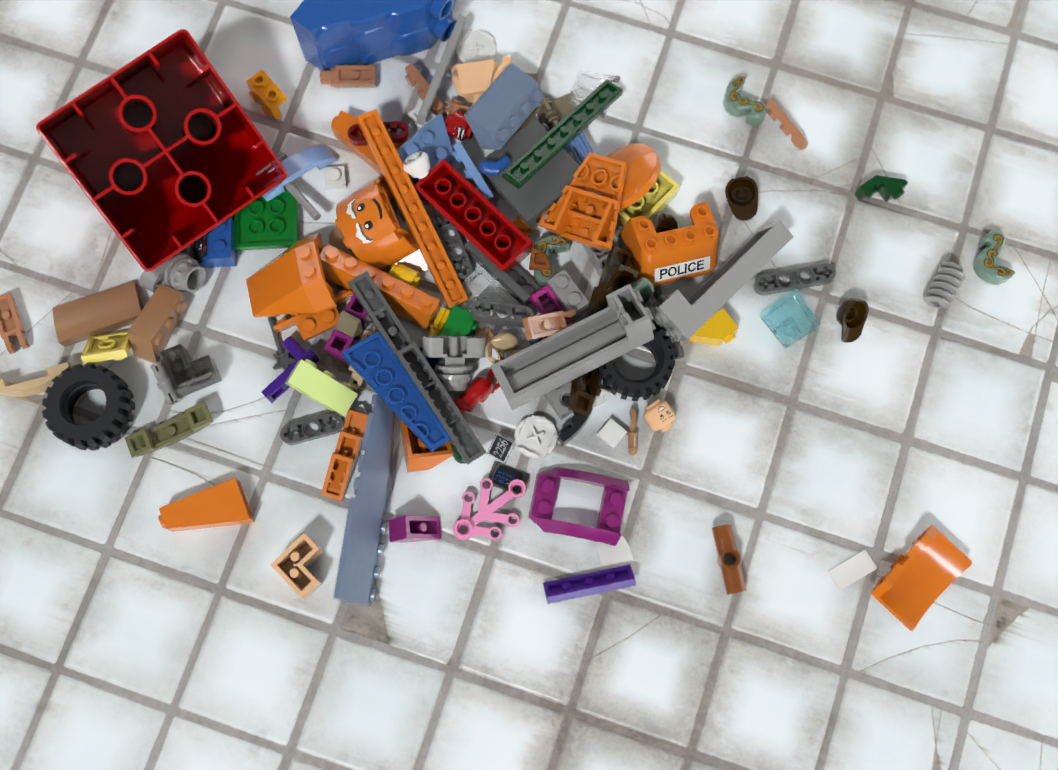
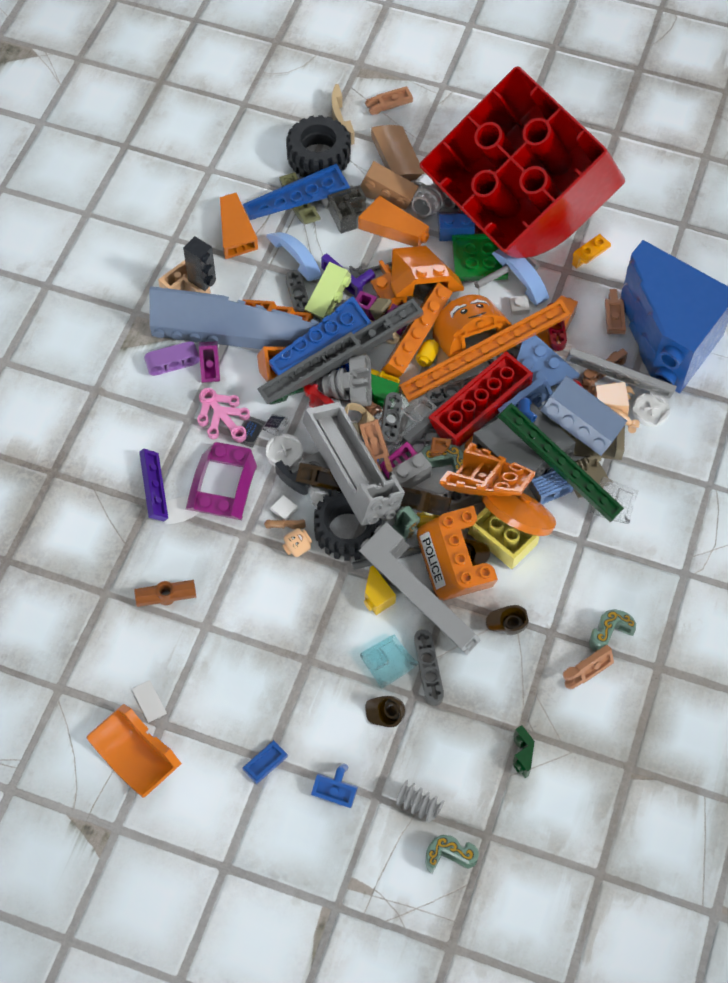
camera: 90 degrees right, 15 degrees down
(106, 347) = (364, 153): light yellow plate -> none
(158, 417) = (298, 193): none -> blue wing
(211, 316) = (393, 223): none -> orange slope
(251, 429) = (308, 265): none -> light blue slope
(298, 535) = (199, 263): none -> black brick
(410, 576) = (172, 358): none -> medium lavender beam
(417, 165) = (523, 351): white cone -> none
(912, 442) = (265, 762): none -> blue tile
(938, 368) = (334, 788): none -> blue plate

